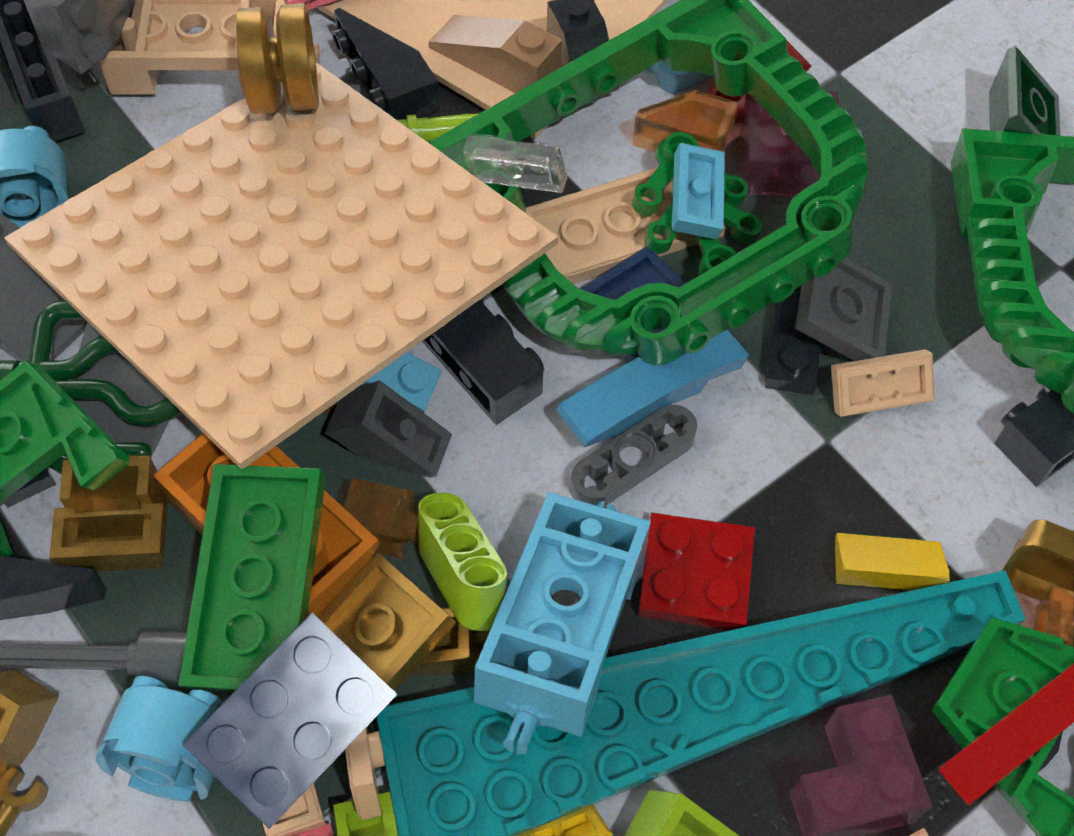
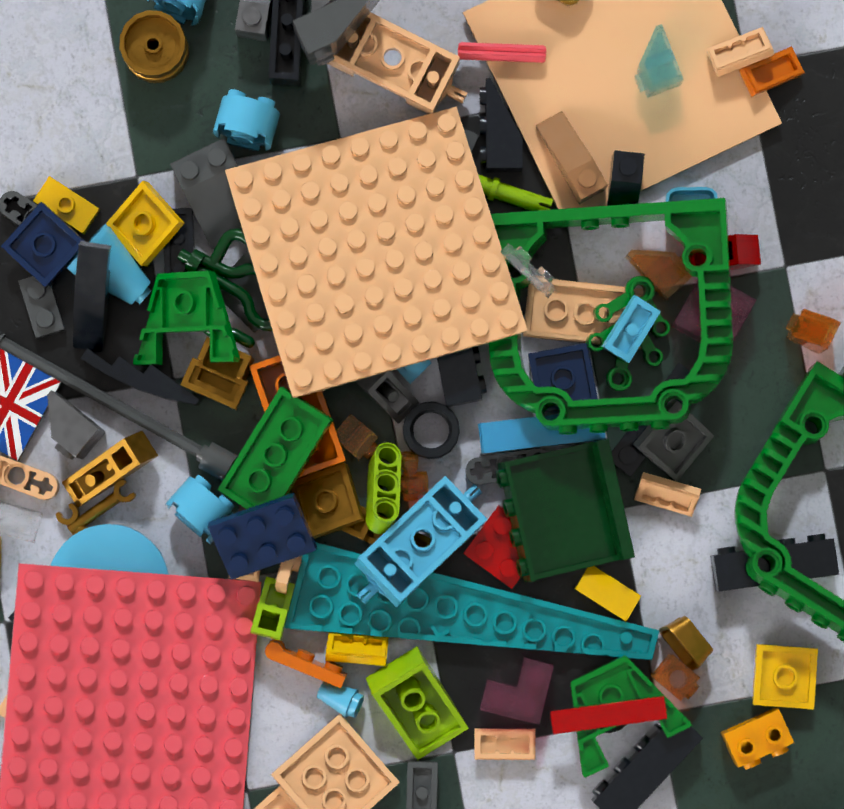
camera: 30 degrees right, 25 degrees up
(273, 59) = (422, 129): pearl gold wheel -> none
(487, 422) = (431, 407): none -> black tyre
(506, 535) = (412, 481): none -> clear orange plate
(759, 466) = (565, 510): none -> dark green panel
(932, 102) = (812, 330): none -> clear orange slope

